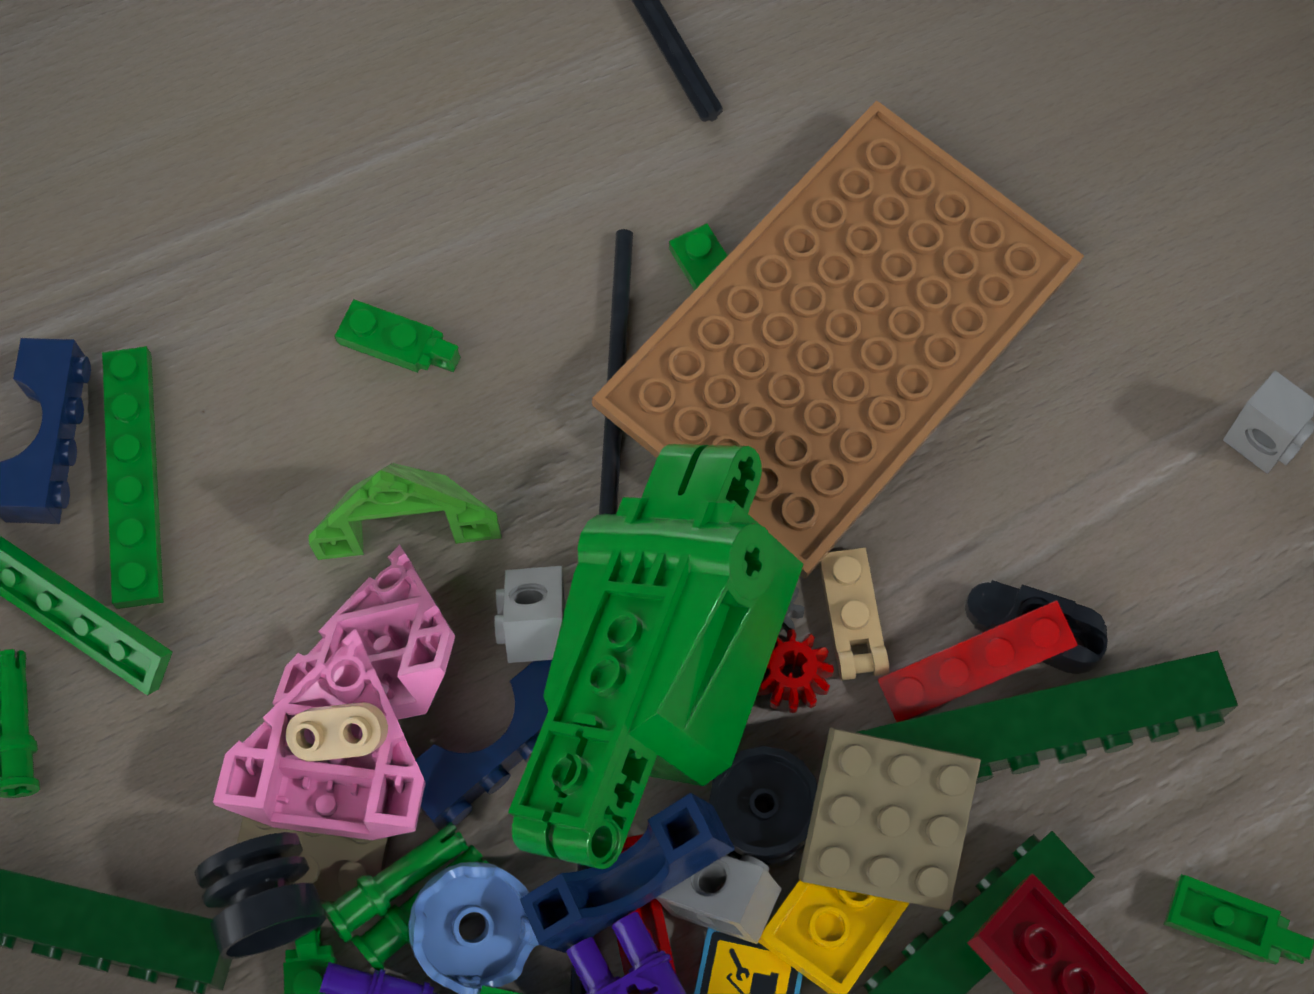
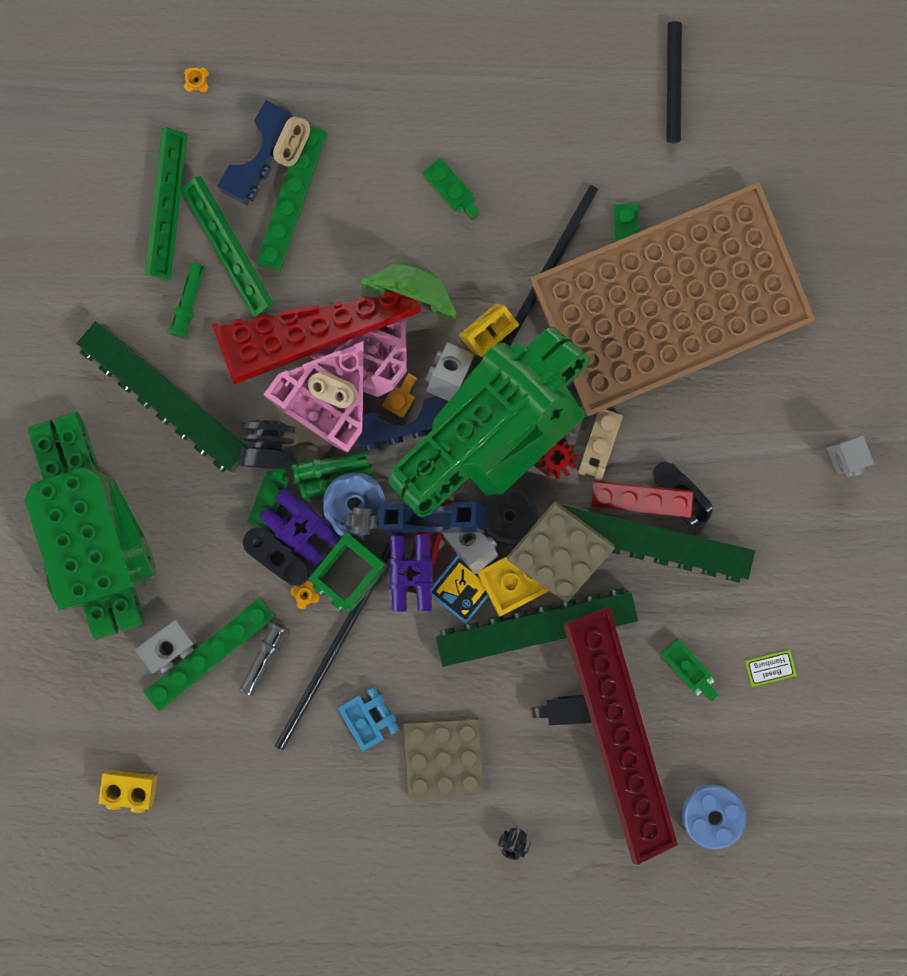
camera: 25 degrees right, 20 degrees up
(92, 383) = (291, 141): none -> tan plate
(230, 683) = (277, 340): none -> red wing
(470, 709) = (399, 399): none -> light orange plate
(500, 949) = (361, 520): none -> dark grey gear
(568, 506) = (488, 329): none -> yellow brick

